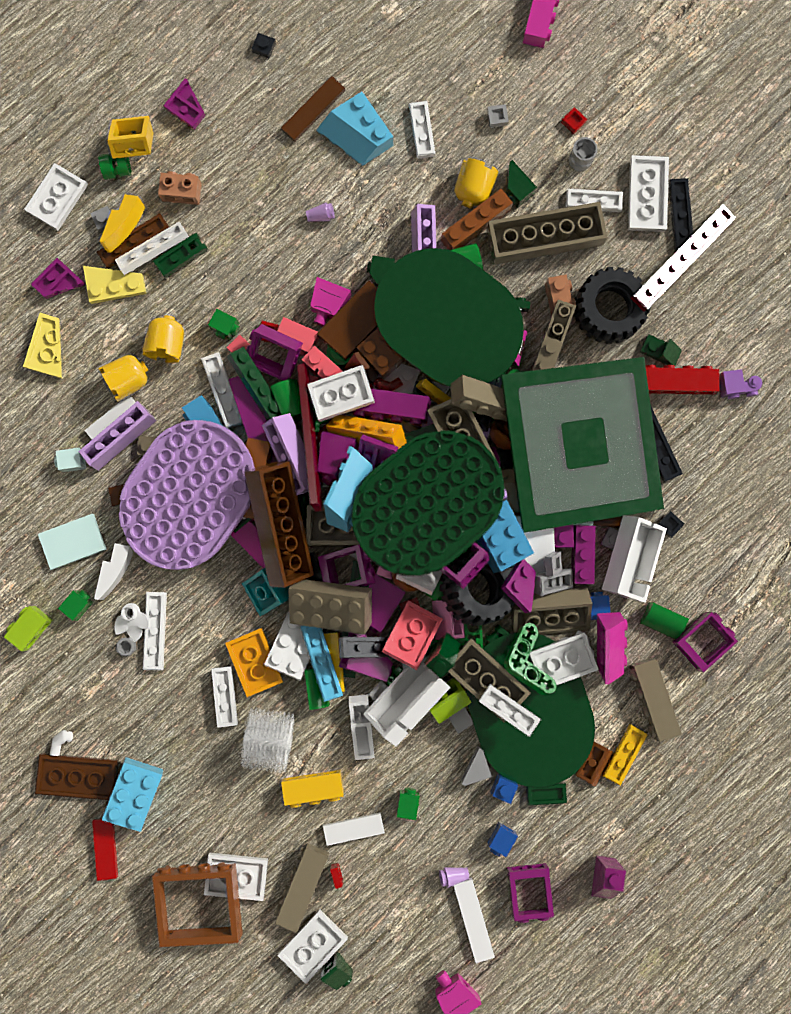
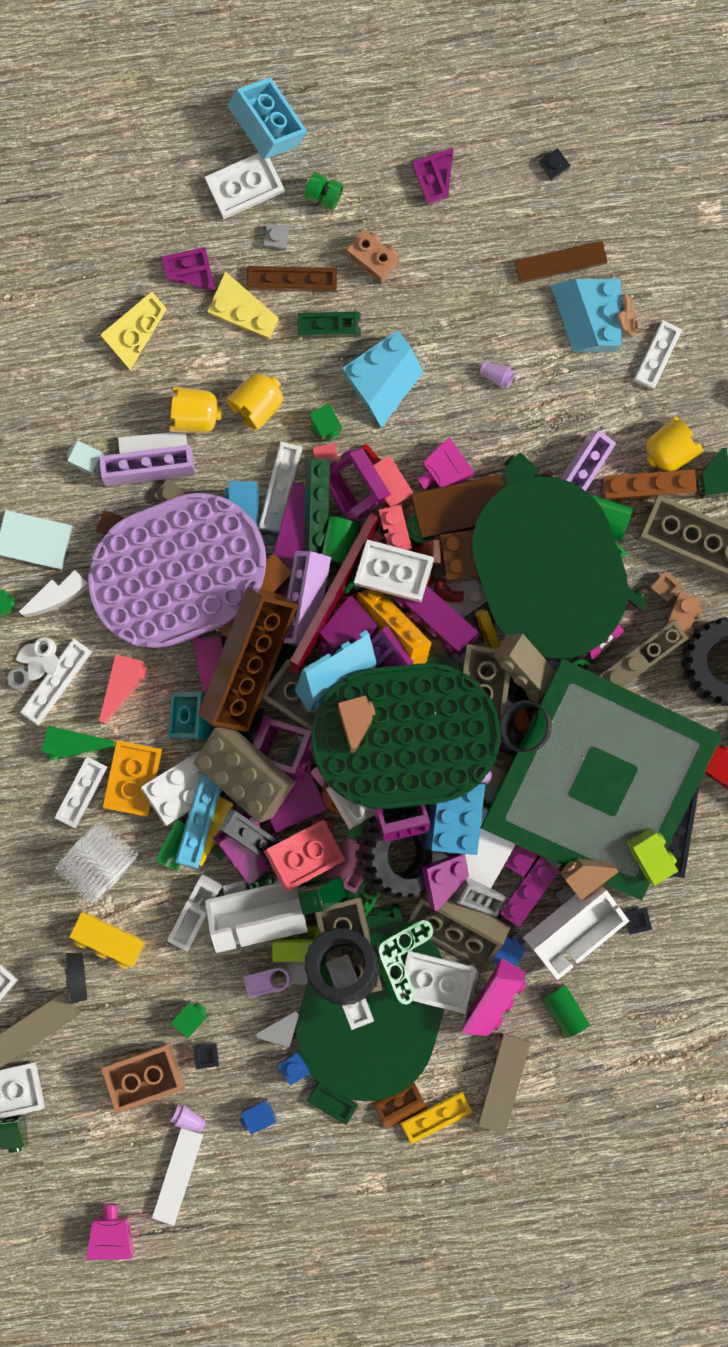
camera: 35 degrees right, 0 degrees up
(40, 139) = (267, 118): none -> medium azure brick
(122, 137) = (362, 189): yellow window -> none
(122, 222) = (292, 254): yellow slope -> none
(151, 248) = (304, 298): white plate -> none
(191, 669) = (69, 744): none -> green slope
(202, 599) = (122, 683): none -> coral slope
(242, 265) = (384, 376): none -> medium azure wedge
(308, 830) = (76, 977): none -> black tyre
(336, 875) = (74, 1040): red tile -> none
(353, 829) = (120, 1007): white tile -> none
(385, 514) = (356, 719): none -> nougat slope
(388, 119) = (627, 319): none -> medium nougat plate
(403, 869) = (143, 1077): none -> nougat brick
(436, 821) = (206, 1055): none -> black plate
(441, 744) = (262, 982): none -> lavender piece
(468, 693) = (328, 941): none -> black tyre
(490, 439) = (506, 719): none -> black tyre
(526, 872) = (262, 1165): magenta window -> none
(534, 283) = (666, 586): none -> medium nougat plate
(553, 563) = (491, 879): light grey plate -> none
(608, 878) = (335, 1224): magenta slope -> none
(618, 516) = (587, 875): none -> medium nougat slope
(653, 472) = (652, 856): none -> lime brick
(727, 634) = (569, 1063): magenta window -> none

